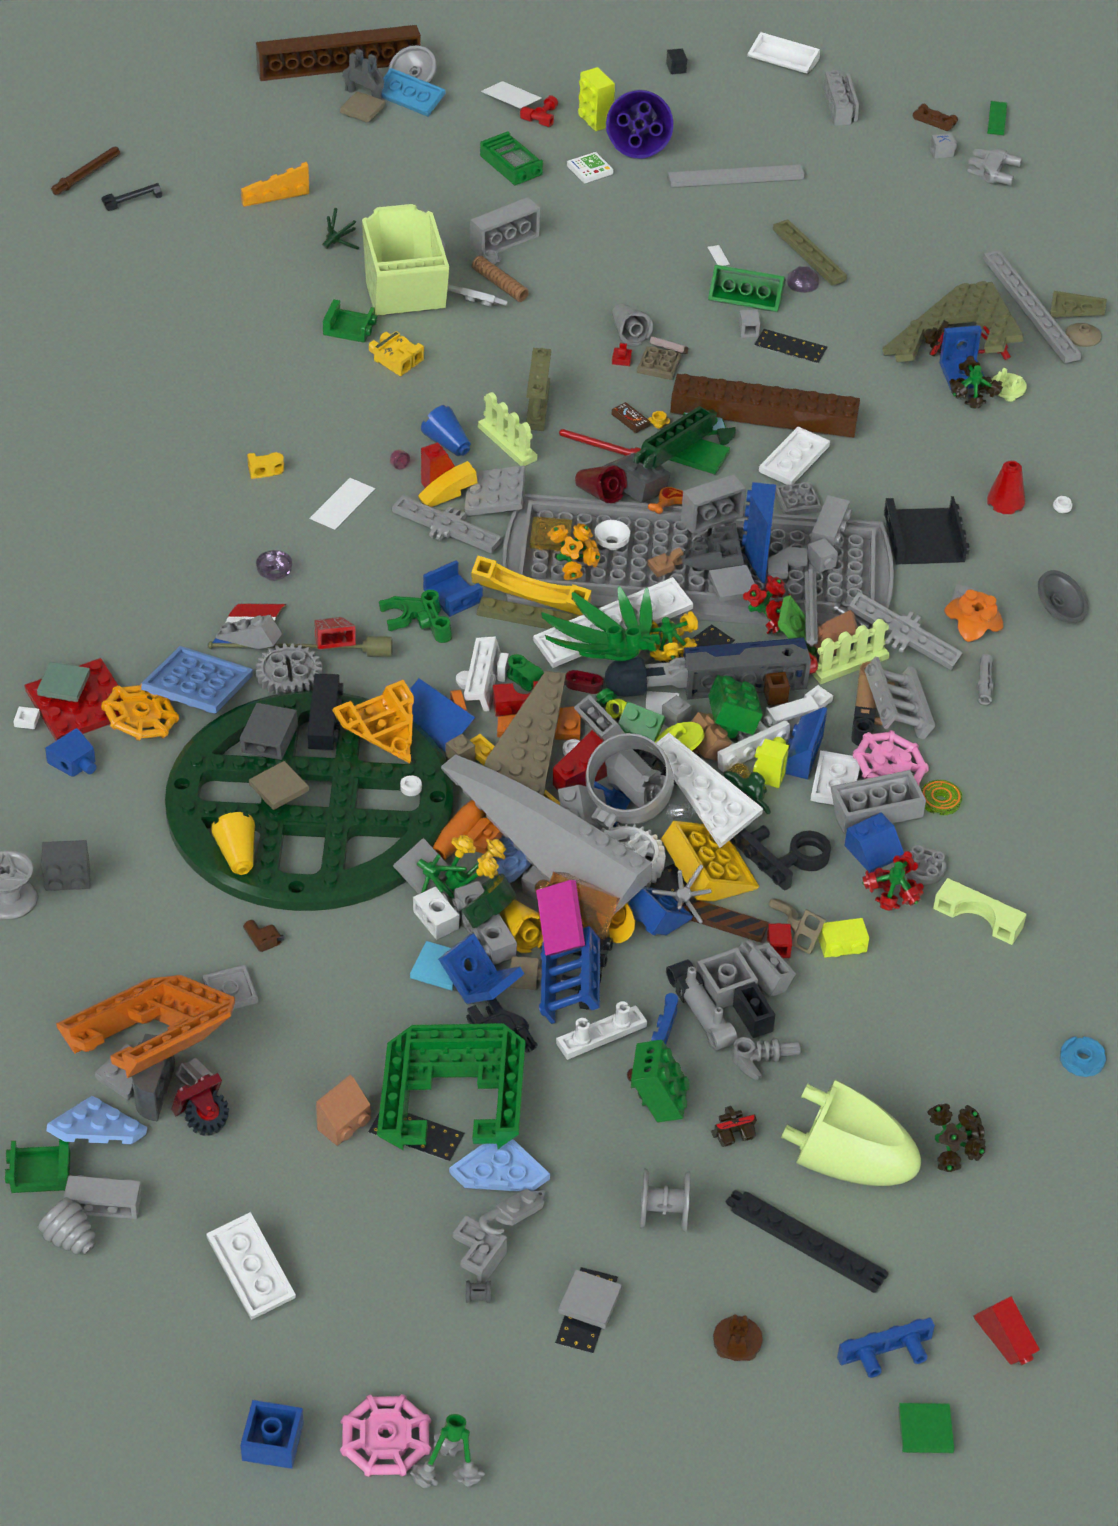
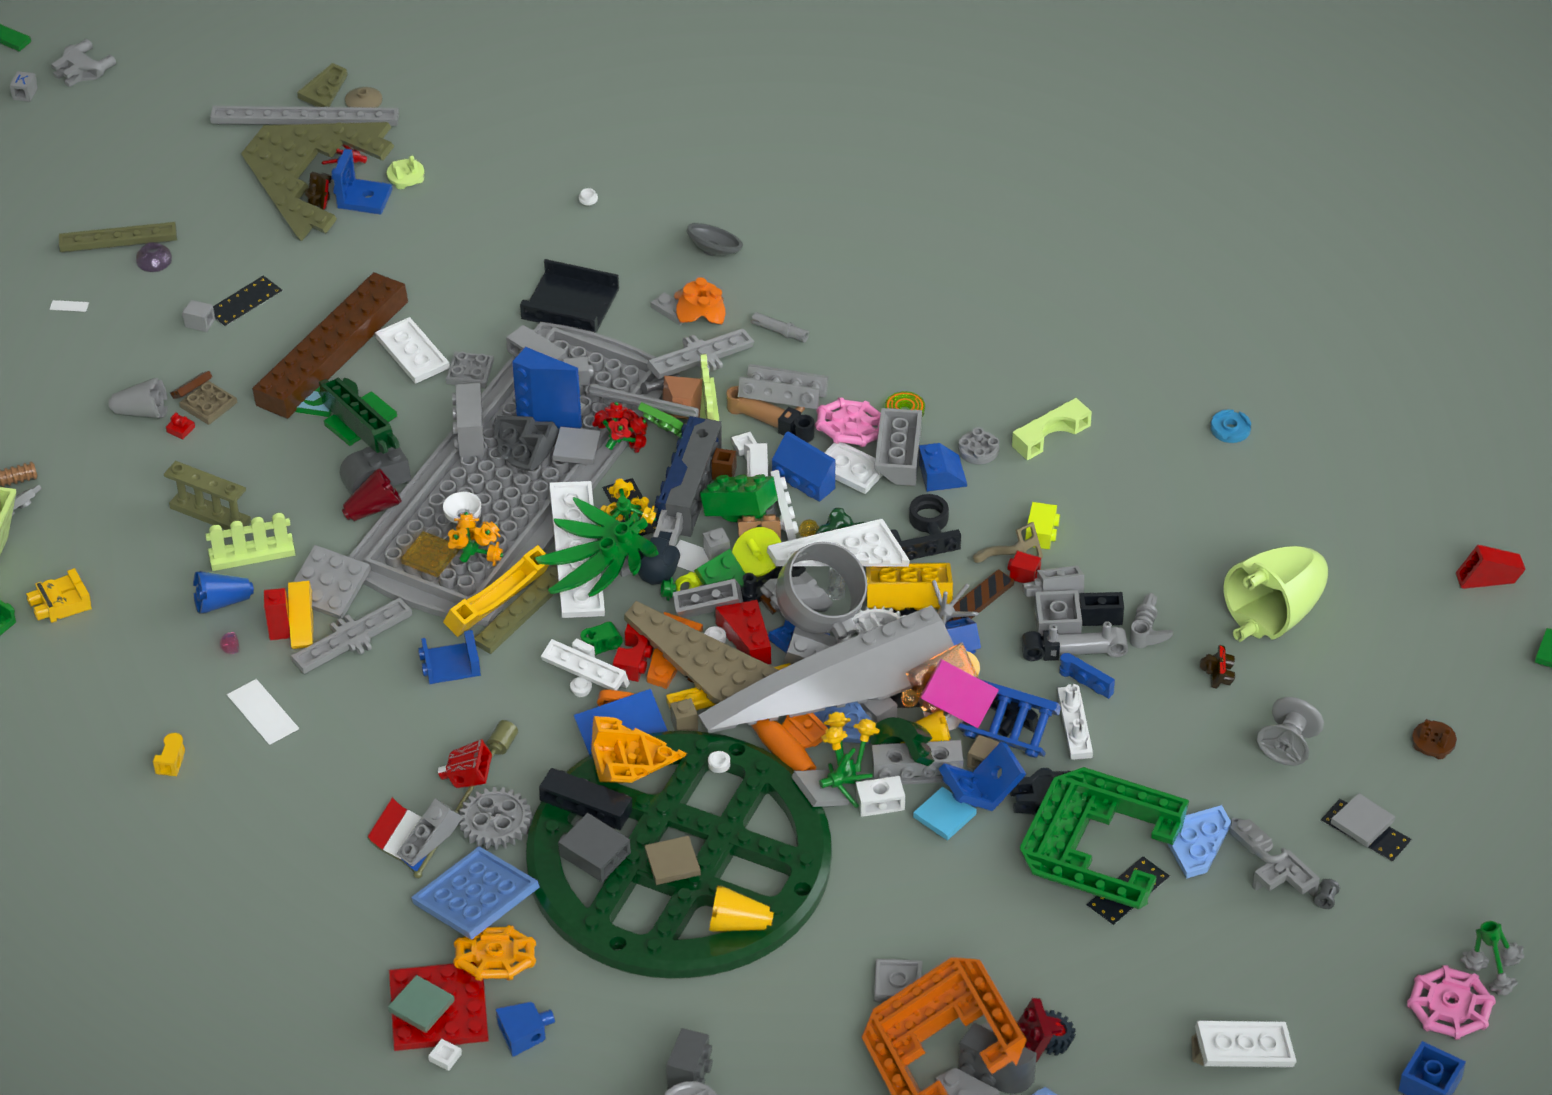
camera: 65 degrees left, 0 degrees up
(263, 938) = (846, 938): reddish brown piece -> none
(271, 561) = (334, 781): clear purple piece -> none
(342, 1111) = (1096, 930): nougat slope -> none
(424, 609) = (475, 687): green piece -> none
(584, 682) = (629, 598): dark red beam -> none
(598, 443) = (334, 464): red piece -> none
(630, 417) = (277, 449): reddish brown tile -> none
(659, 419) = (295, 429): yellow plate -> none
(659, 1081) = (1166, 692): green piece -> none
(665, 564) = (518, 487): medium nougat plate -> none
(667, 497) = (418, 456): orange piece -> none
(746, 288) = (144, 299): green slope -> none
(772, 761) = (818, 496): neon yellow brick -> none
(807, 1240) = (1350, 662): black hinge -> none
(889, 879) = (1004, 464): red plant -> none
(894, 1338) = (1471, 636): blue plate -> none
(953, 1137) = (1285, 518): dark brown plant -> none
(981, 384) = (397, 187): dark brown plant -> none
(1008, 489) = (555, 221): red cone -> none

